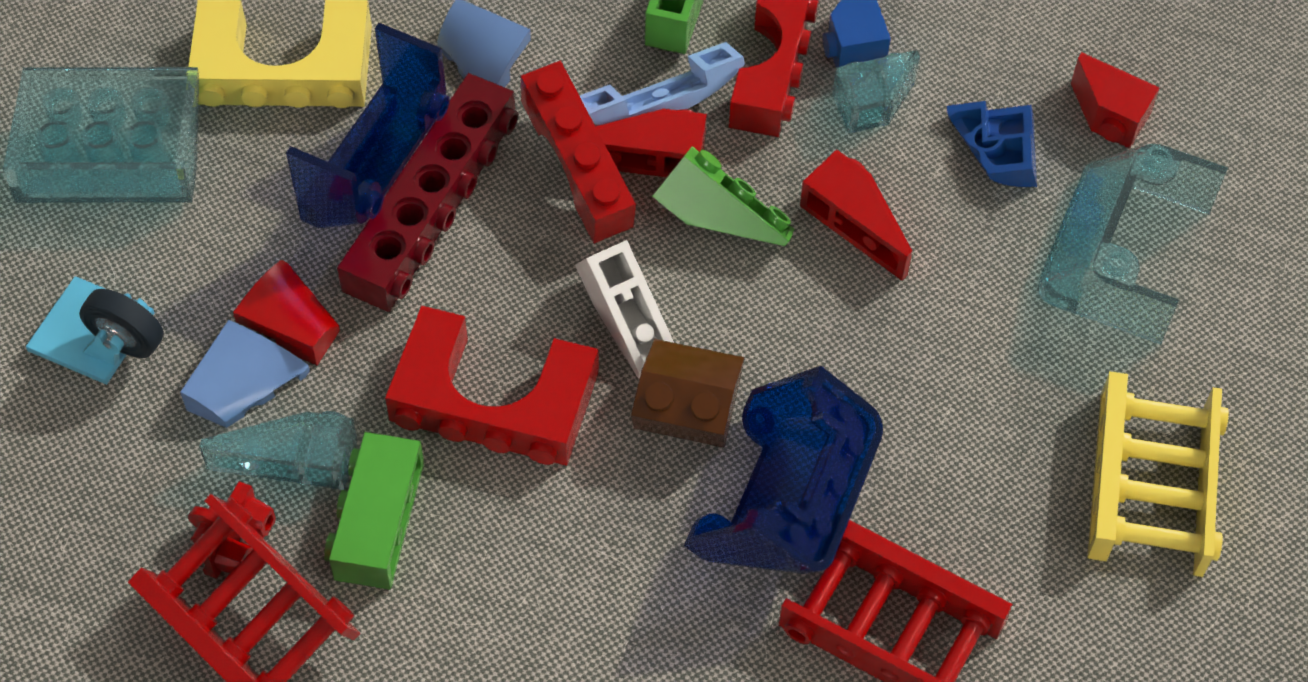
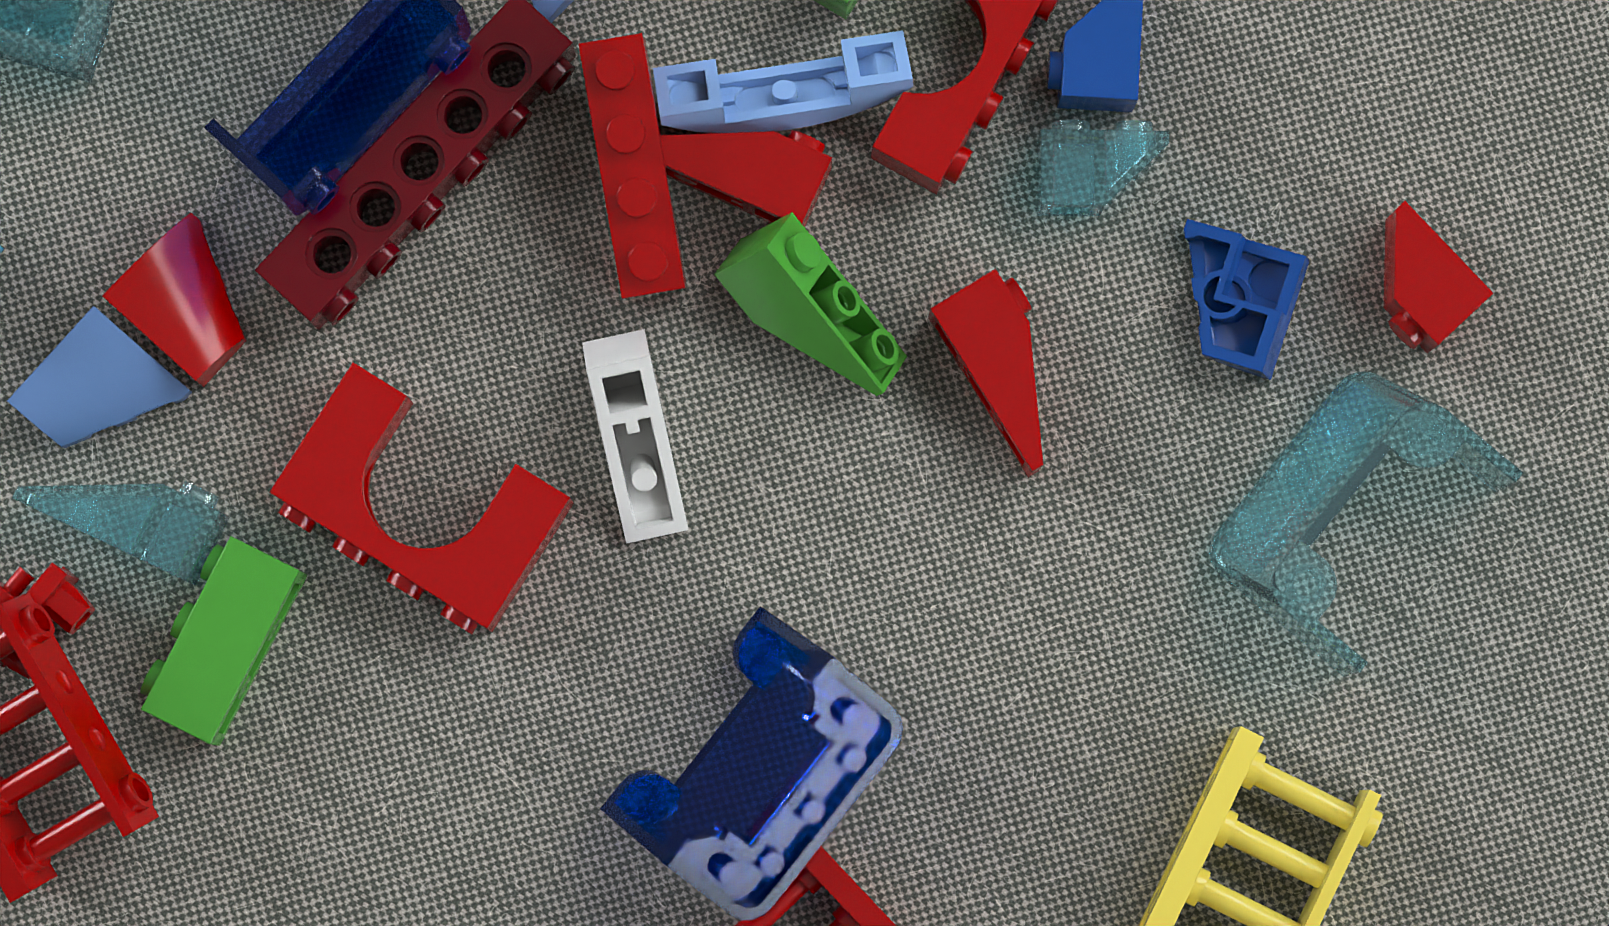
camera: 15 degrees right, 25 degrees up
(687, 392) = (673, 586): reddish brown slope -> none

